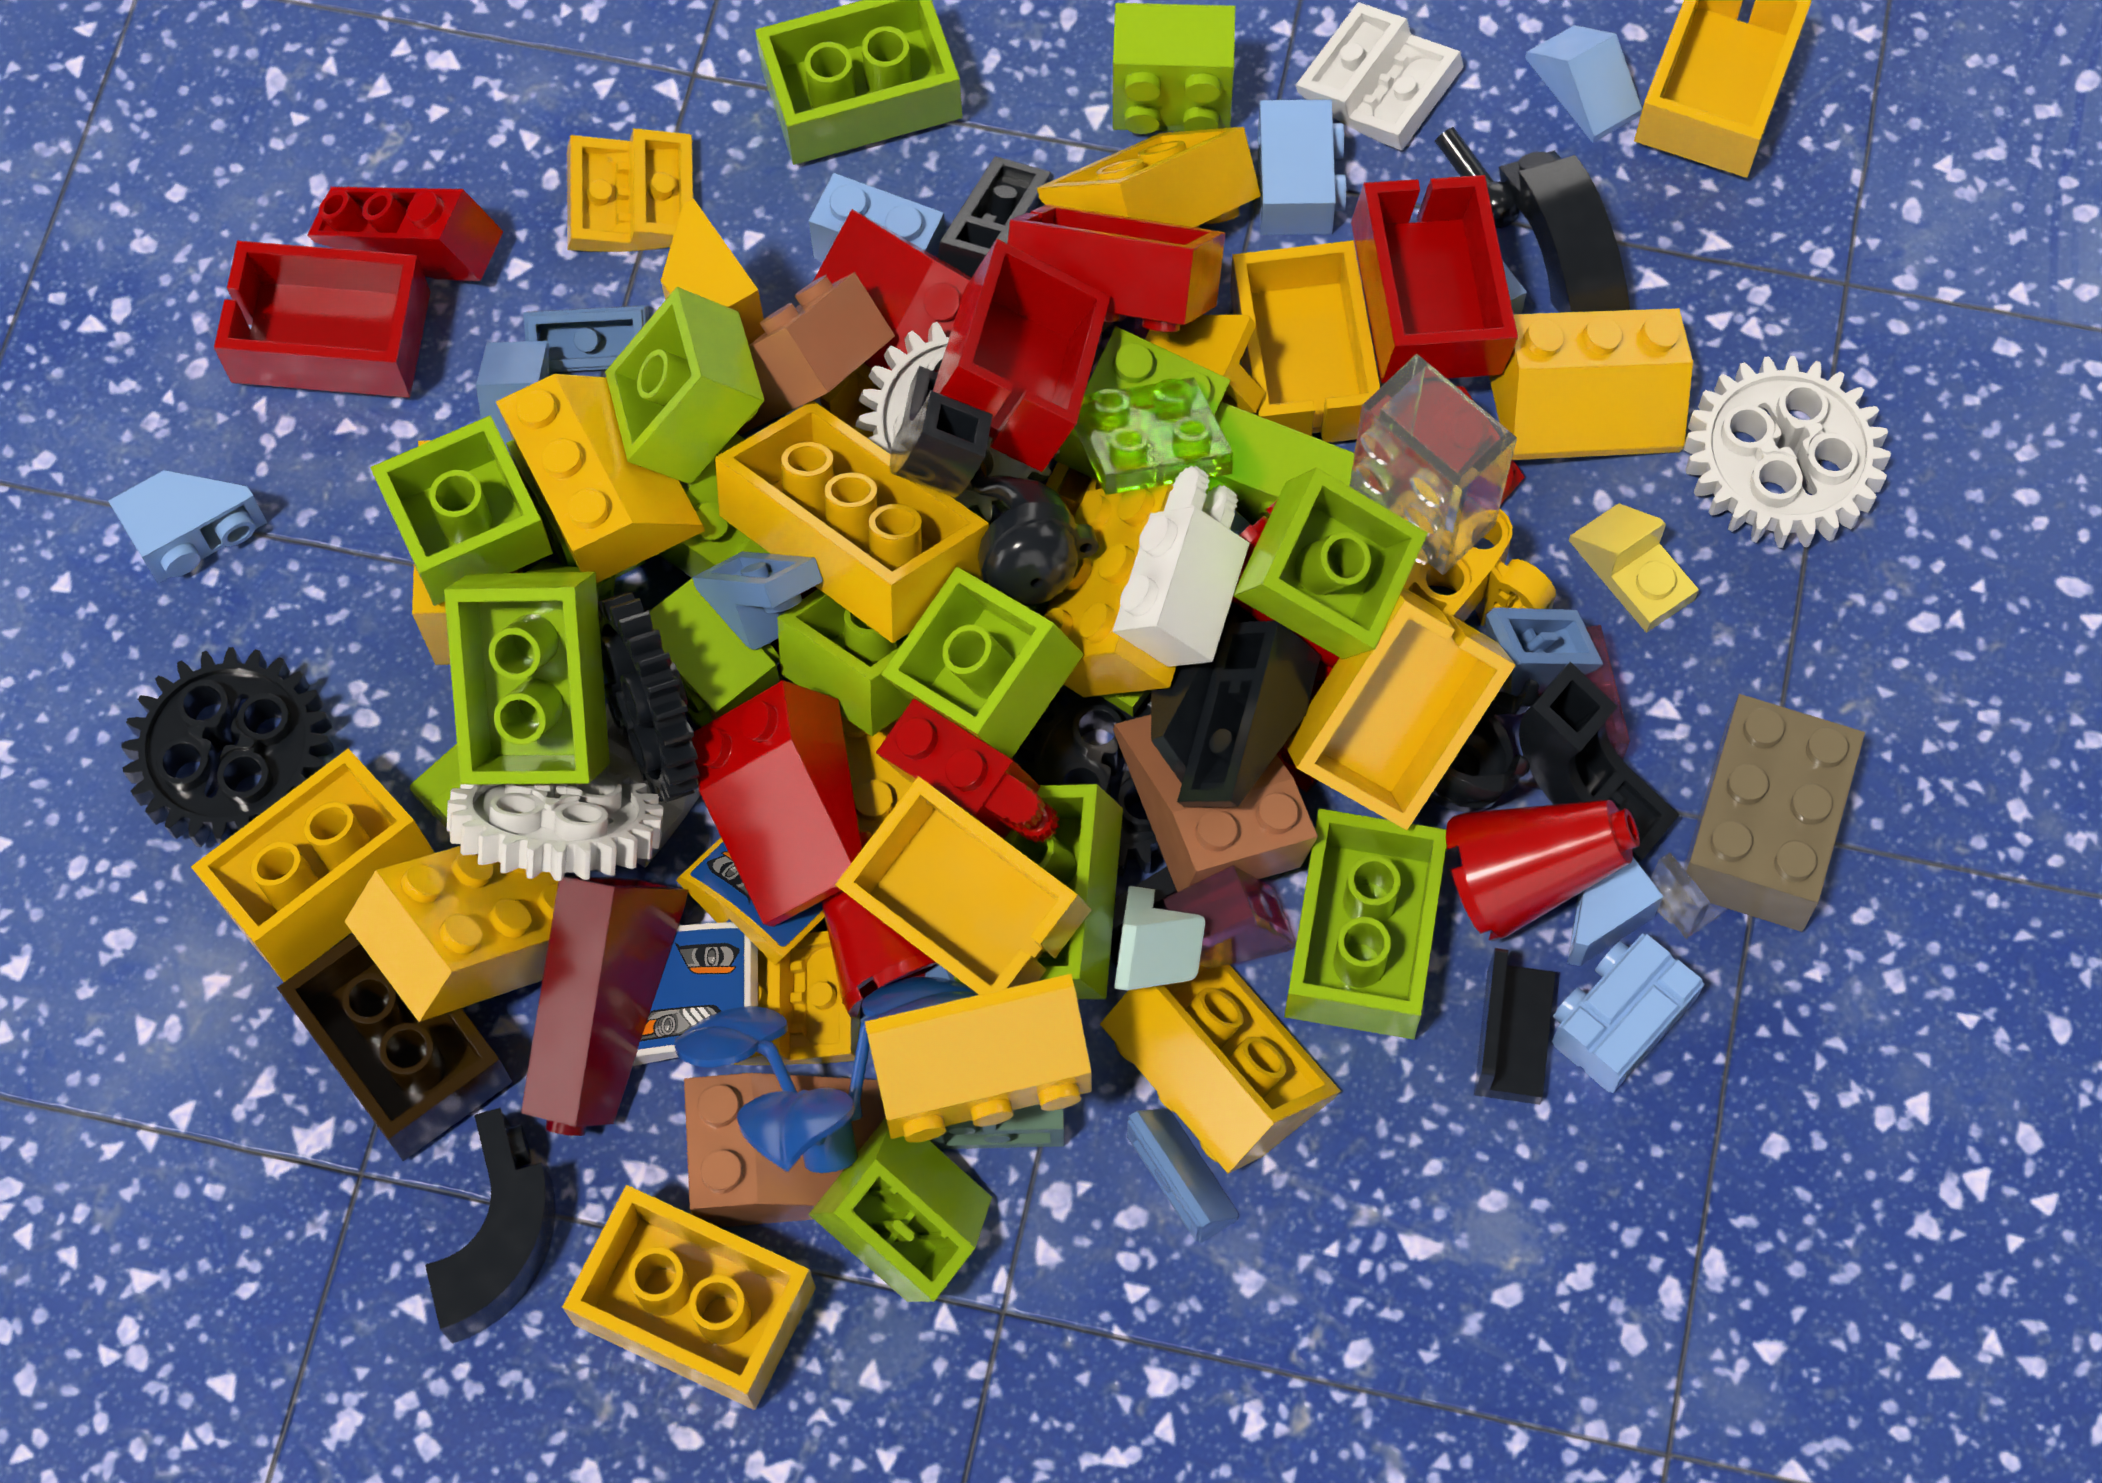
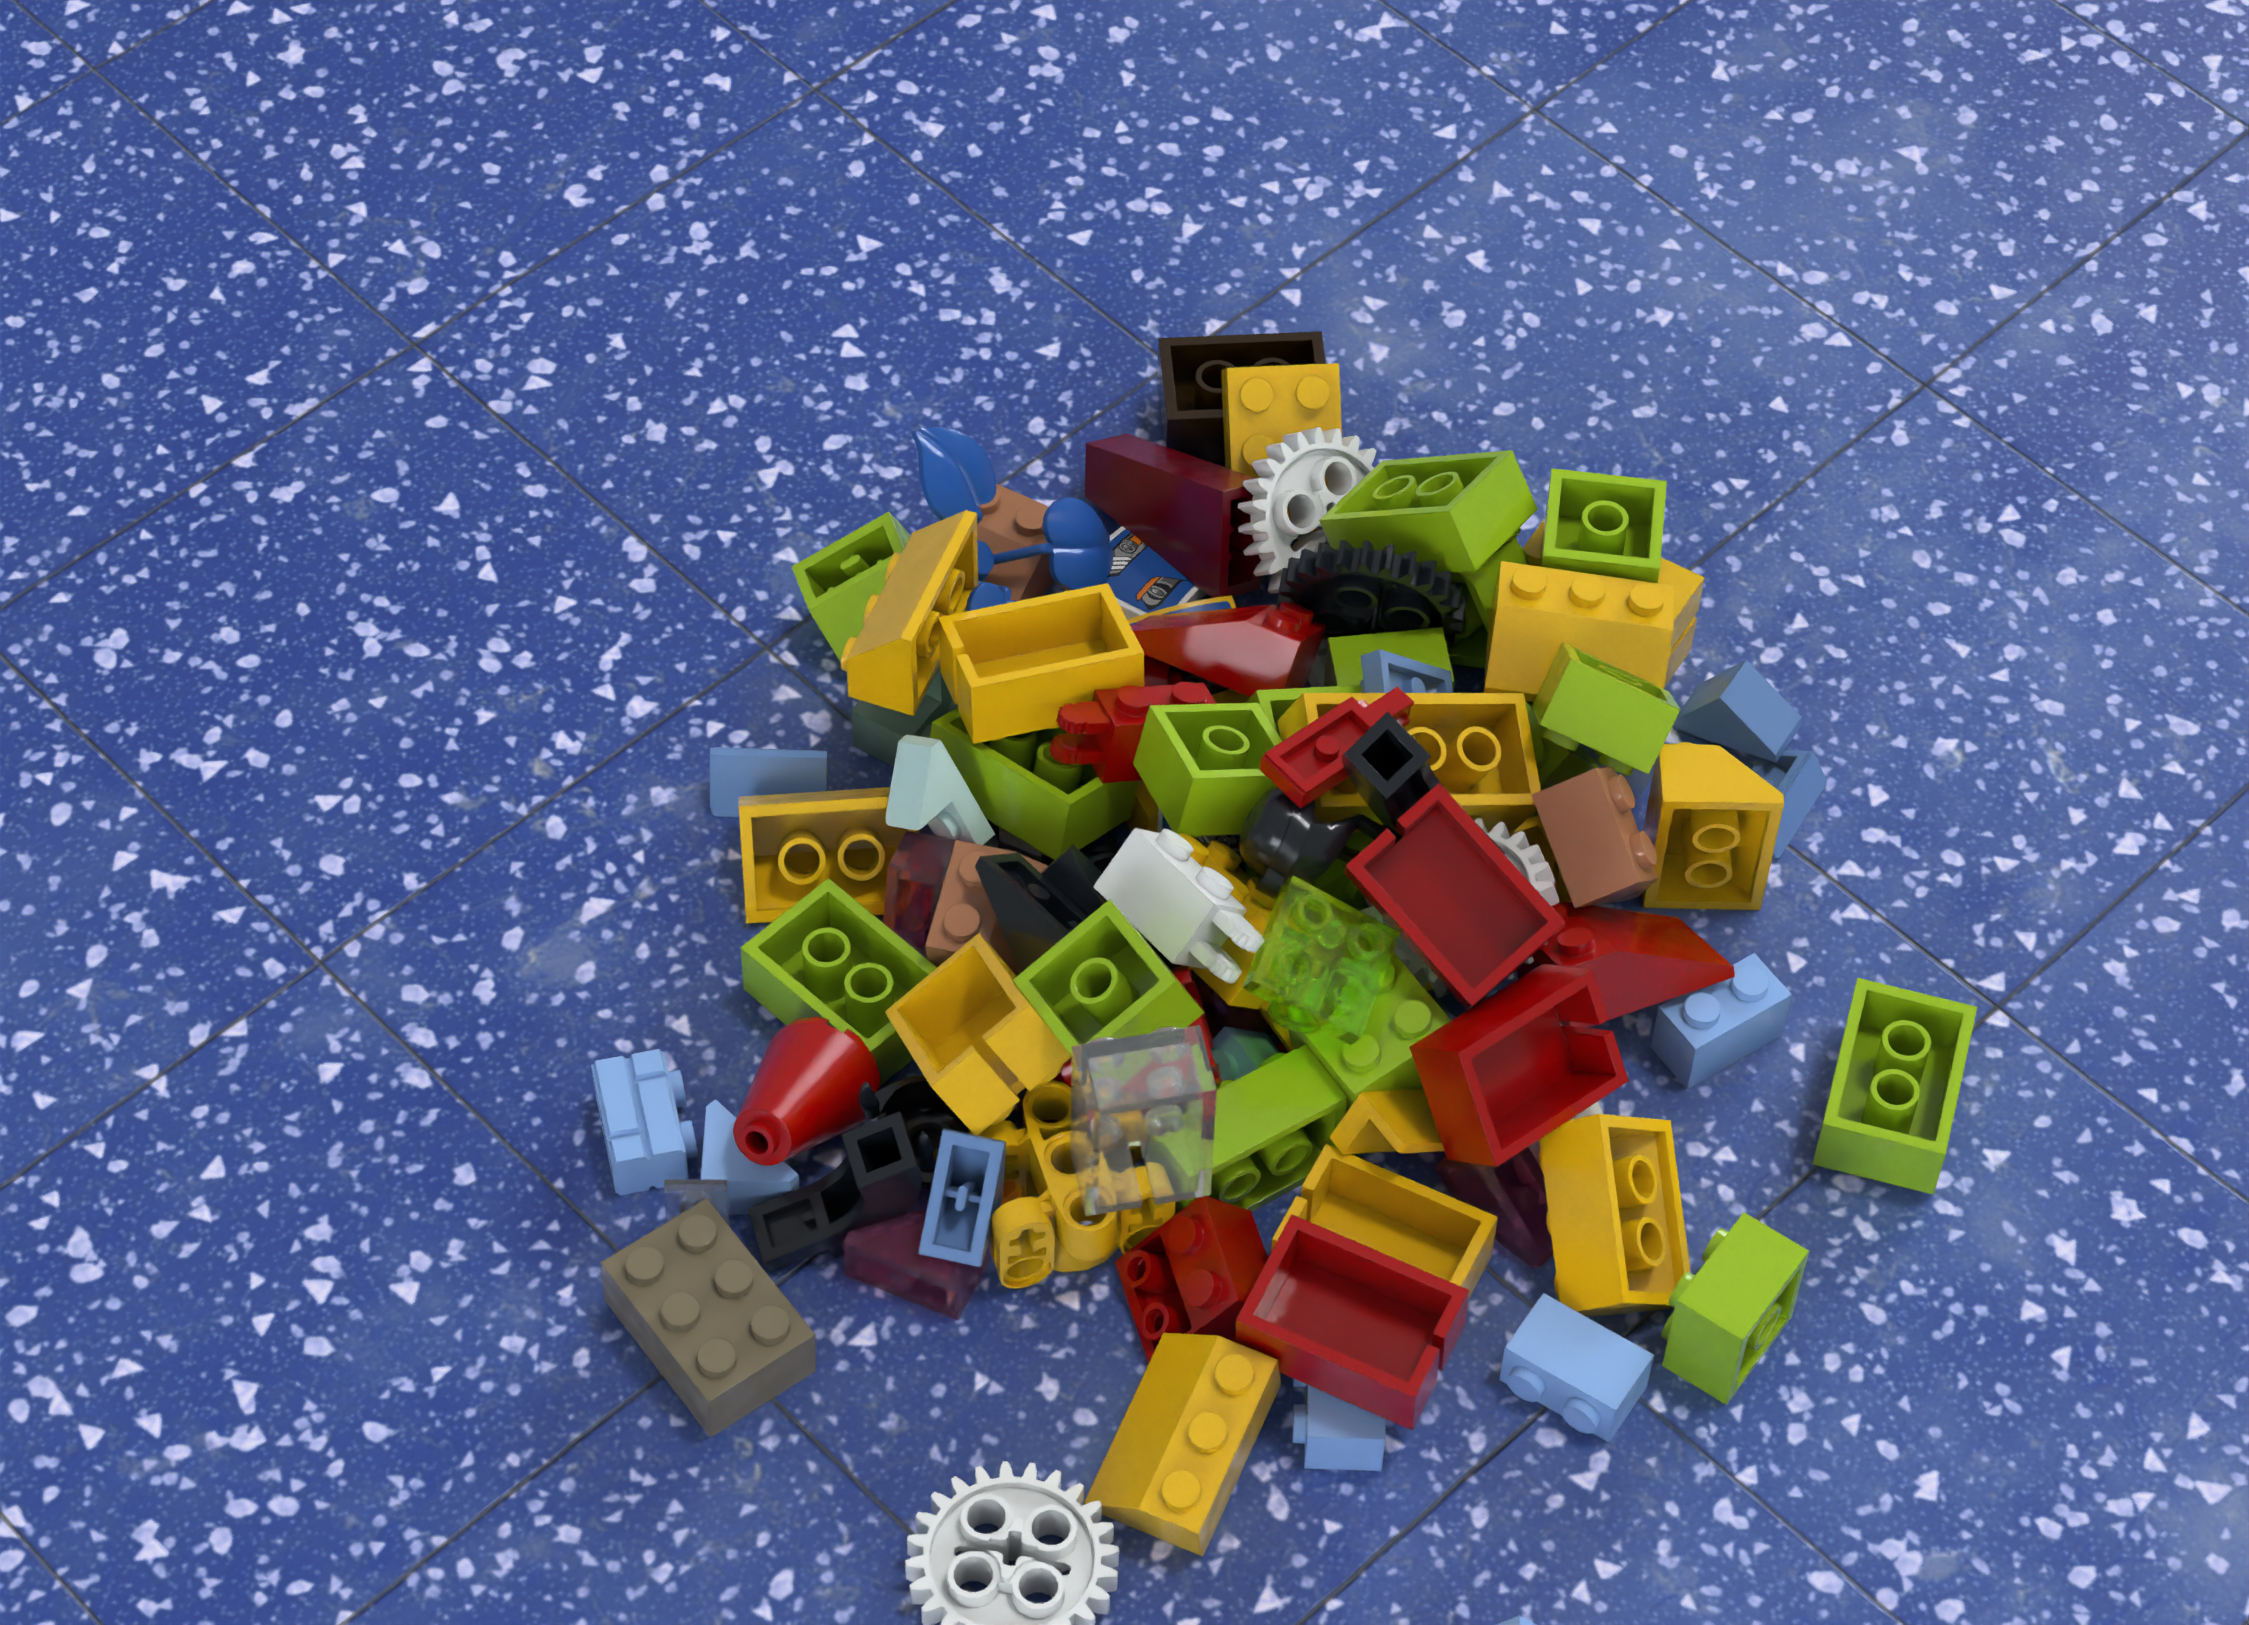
camera: 120 degrees right, 15 degrees down
(174, 737) = (1555, 414): black gear -> none
(184, 519) = (1774, 472): light blue slope -> none
(308, 860) = (1410, 396): yellow slope -> none
(323, 319) = (1884, 627): red piece -> none
(437, 225) = (1950, 723): red slope -> none
(511, 1246) = (1053, 406): black arch -> none
(627, 191) = (1897, 891): yellow slope -> none
(690, 1297) = (874, 461): yellow brick -> none
(935, 517) = (1312, 757): none -> red hinge
(1000, 195) = (1669, 1088): black slope -> none
(1380, 75) = (1634, 1508): white slope -> none
(1467, 164) = (1437, 1521): black bar -> none
(1514, 1031) = (699, 1041): black panel -> none
(1570, 230) = (1354, 1515): black arch -> none
(1631, 562) = (1006, 1390): light yellow slope -> none

